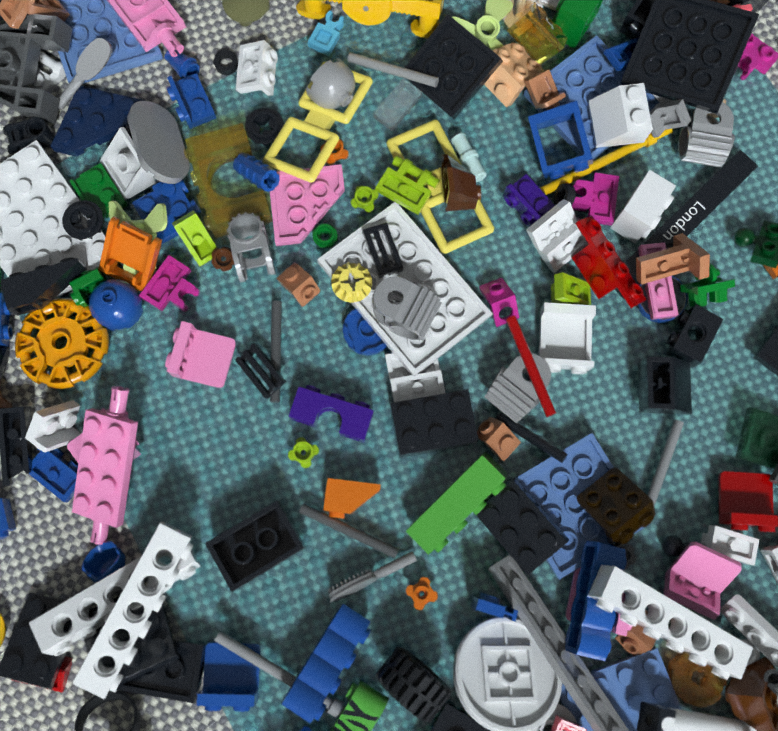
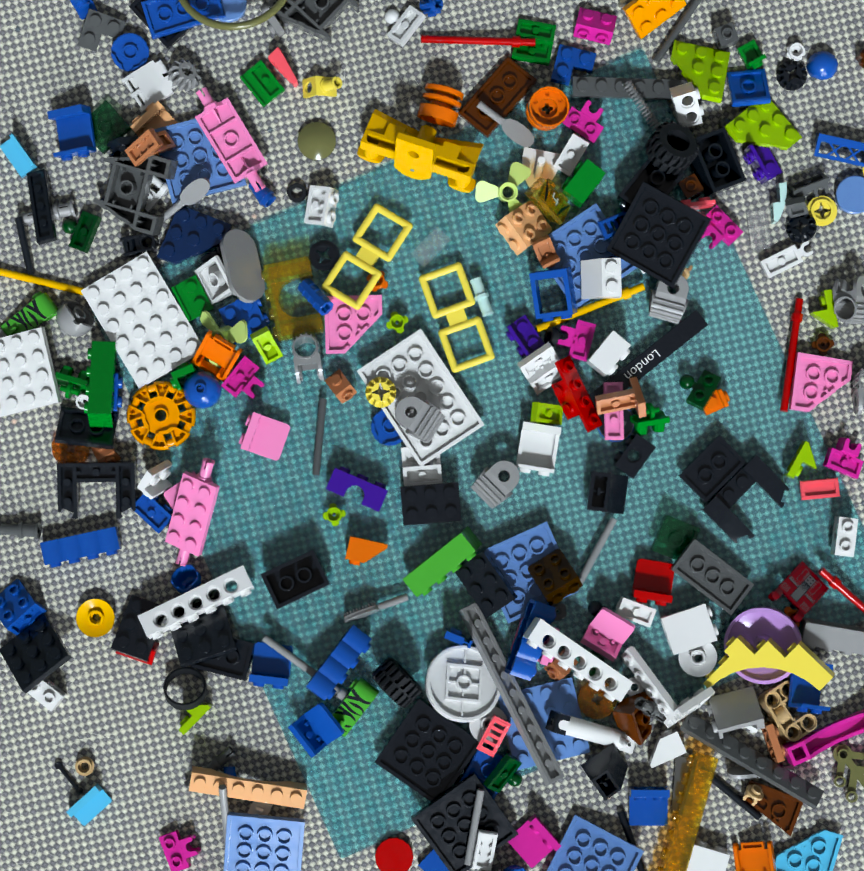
camera: 10 degrees right, 10 degrees up
(39, 287) = (145, 376): black slope -> none
(72, 217) = (174, 319): black gear -> none
(93, 675) = (191, 658): white brick -> none
(192, 100) = (268, 228): blue bracket -> none
(218, 263) = (280, 361): reddish brown plate -> none
(248, 355) = (293, 442): black tile -> none
(325, 229) = (359, 345): green plate -> none
(326, 36) = (378, 182): medium azure plate -> none
(332, 85) = (381, 232): light grey cylinder -> none
(349, 530) = (362, 574): dark grey bar -> none
(389, 269) = (410, 384): black tile -> none
(393, 69) = (429, 218): light grey bar -> none
(404, 190) = (426, 321): lime plate -> none
(429, 594) = (408, 628): orange plate -> none
(458, 62) = (475, 223): black plate -> none
(458, 185) = (469, 324): reddish brown slope -> none
(498, 438) = (477, 518): nougat bracket -> none
(499, 296) = (491, 412): dark pink bracket -> none
(530, 365) = (504, 470): red bar -> none
(533, 438) = (501, 520): black bar -> none
(669, 116) = (637, 281): light grey bracket -> none

